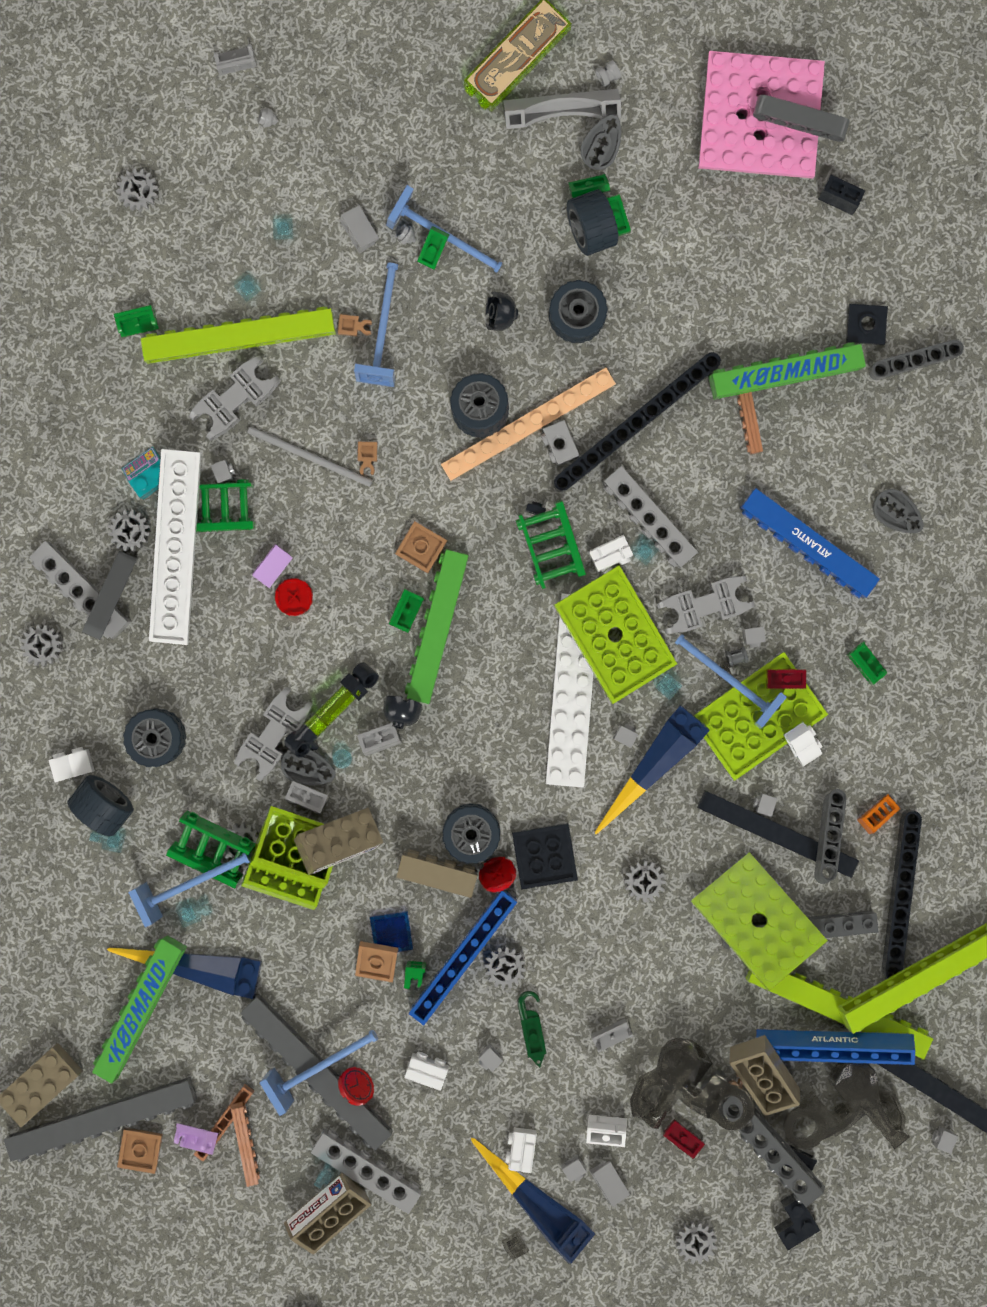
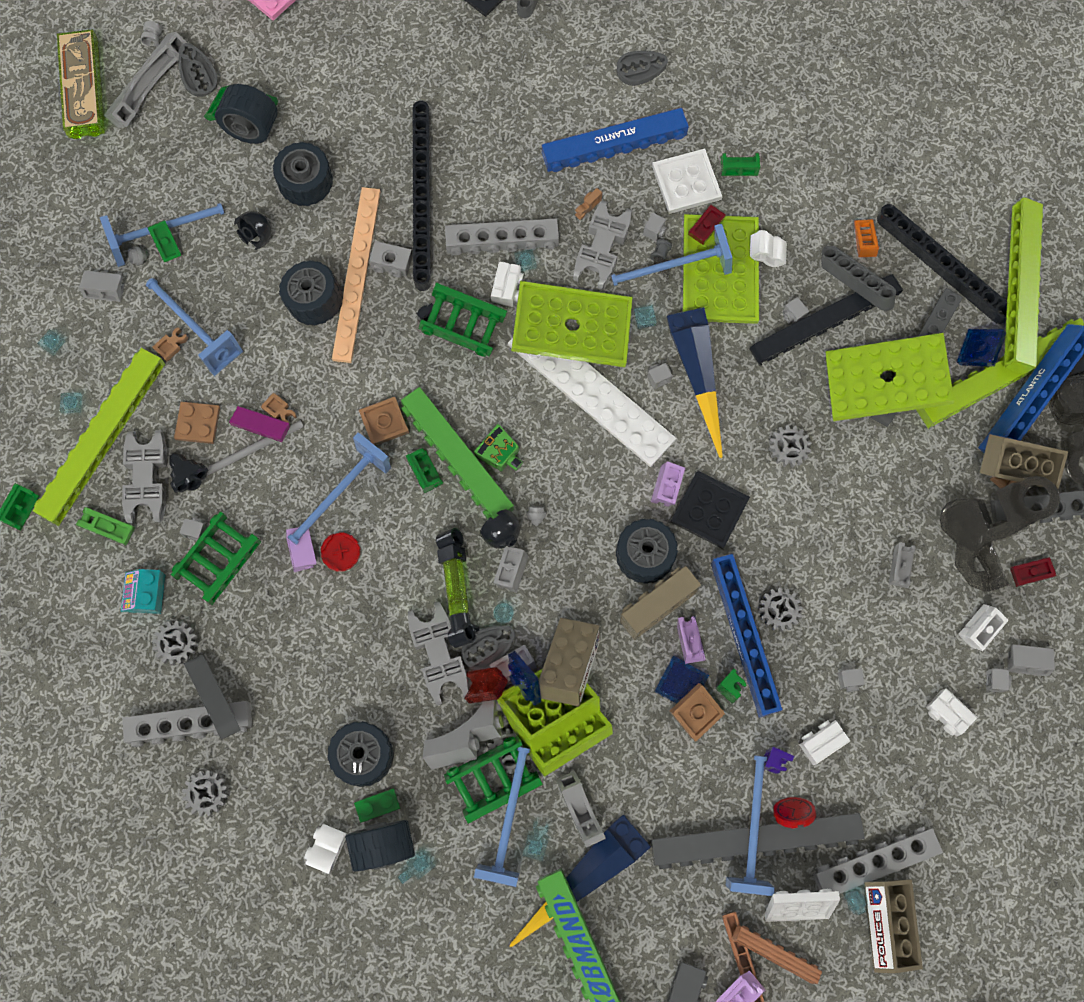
camera: 50 degrees left, 15 degrees down
(130, 777) = (377, 805): none -> green plate
(174, 401) = (105, 526): none -> bright green plate
(175, 546) = (219, 612): white plate -> none
(220, 807) = (463, 742): none -> light grey arch
(238, 929) = (580, 809): none -> light grey arch
(260, 429) = (186, 473): none -> black rock
(273, 792) = (486, 685): none -> clear red bracket
(291, 1139) = (801, 905): none -> white plate
(298, 814) = (524, 678): none -> clear blue plate
(308, 401) = (197, 422): none -> medium nougat plate
(344, 452) = (259, 424): none -> magenta tile
(382, 561) = (370, 454): none -> medium blue tile
(382, 1045) = (775, 759): none -> dark purple hinge
(428, 917) = (690, 640): none -> lavender hinge
(438, 724) = (536, 514): none -> light grey plate
(466, 657) = (499, 450): none -> torso
(497, 874) = (697, 555): red tile -> none
(515, 1246) = (1034, 783): clear smoke slope -> none
(532, 1029) = (850, 627): dark green plate -> none
(539, 809) = (668, 484): none -> lavender hinge
(558, 1225) = (1040, 730): dark blue plate -> none
(738, 565) = (590, 202): none -> medium nougat plate
(750, 423) = (480, 114): nougat piece -> none
(786, 371) = (472, 65): bright green brick -> none
(817, 631) = (687, 181): none -> white plate
(845, 975) = (981, 347): none -> clear blue plate

